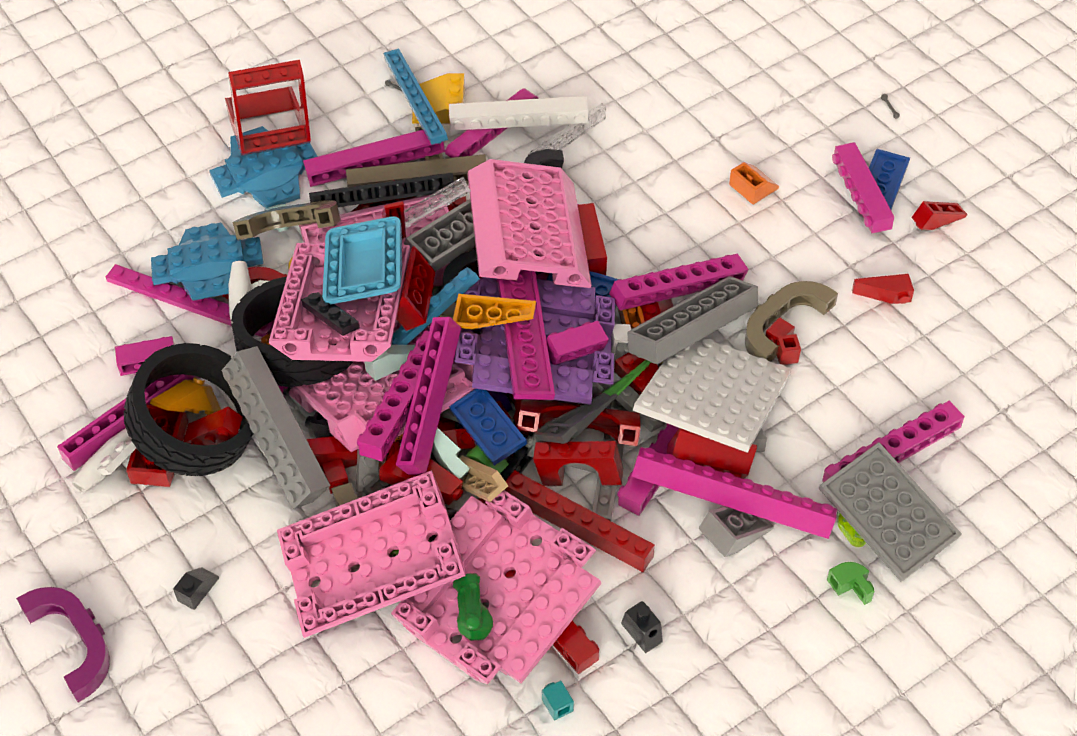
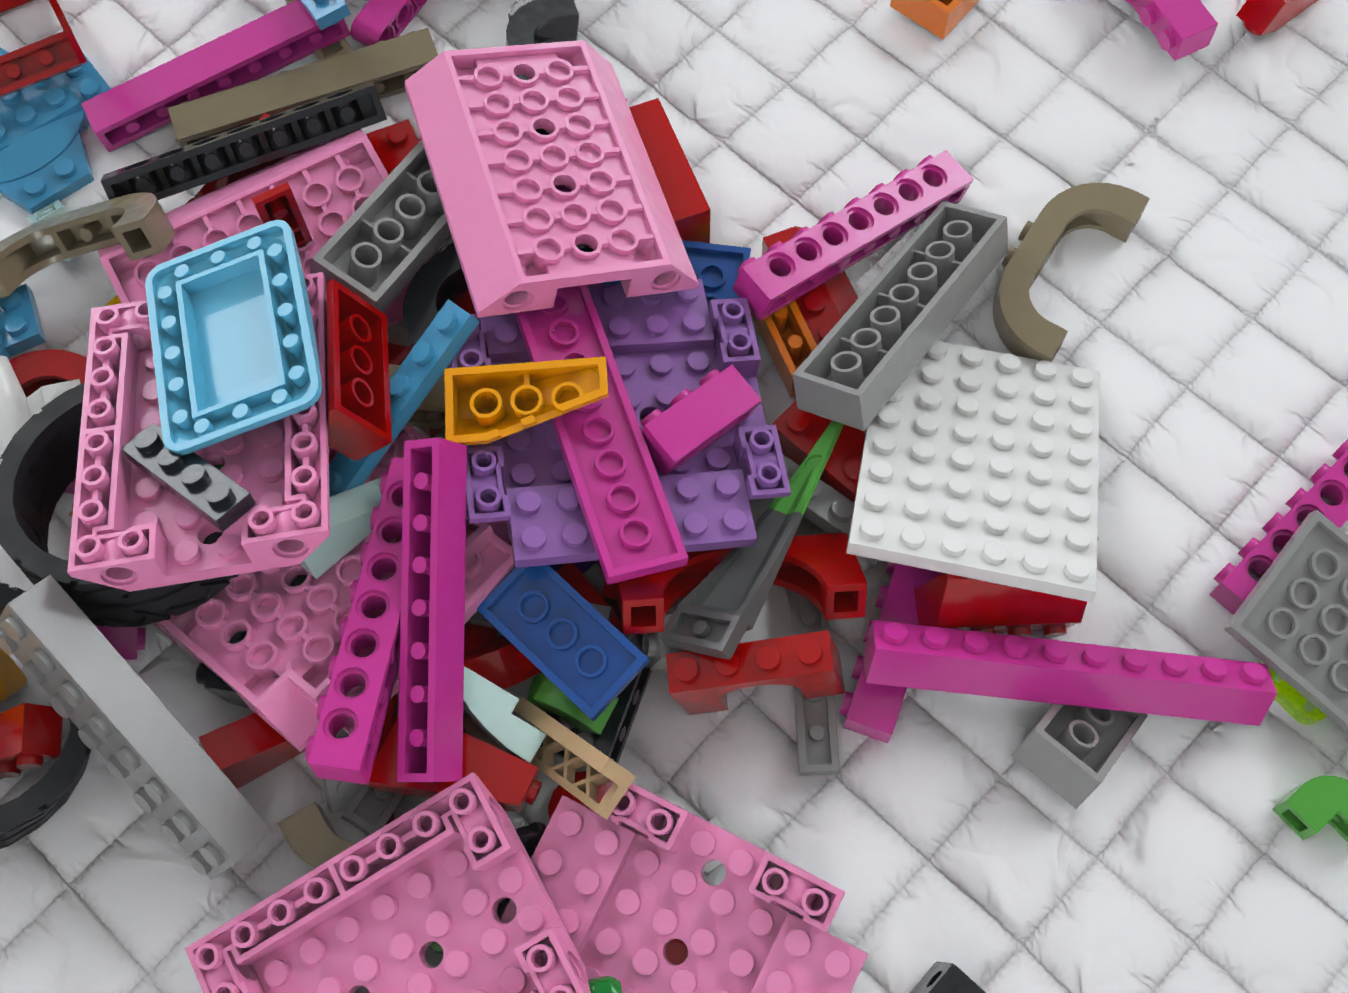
camera: 10 degrees left, 15 degrees up
(335, 473) = (281, 785): red brick -> none
(436, 202) = (355, 159): clear plate -> none
(581, 522) = (780, 788): red brick -> none
(619, 340) = (775, 382): white arch -> none
(779, 328) = (1061, 298): red brick -> none
(788, 349) = (1088, 333): red brick -> none
(889, 289) = (1231, 169): red slope -> none

